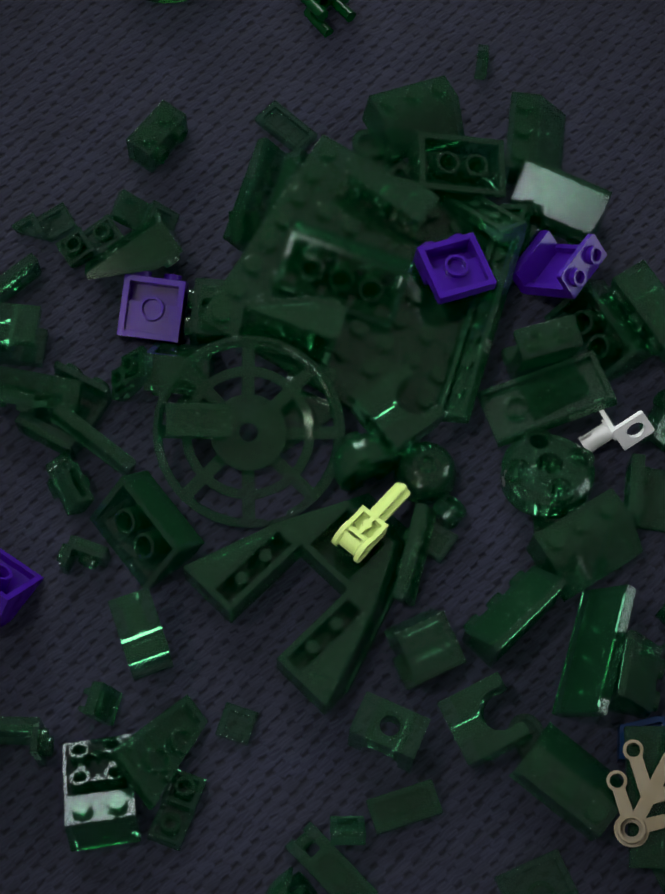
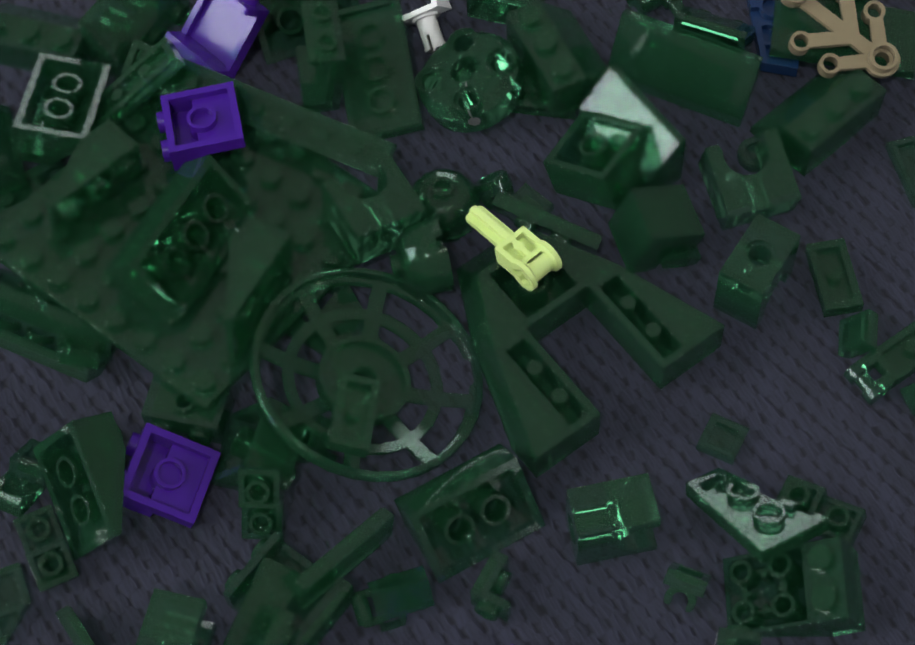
camera: 75 degrees left, 5 degrees down
(481, 585) = (597, 159): none -> clear green slope

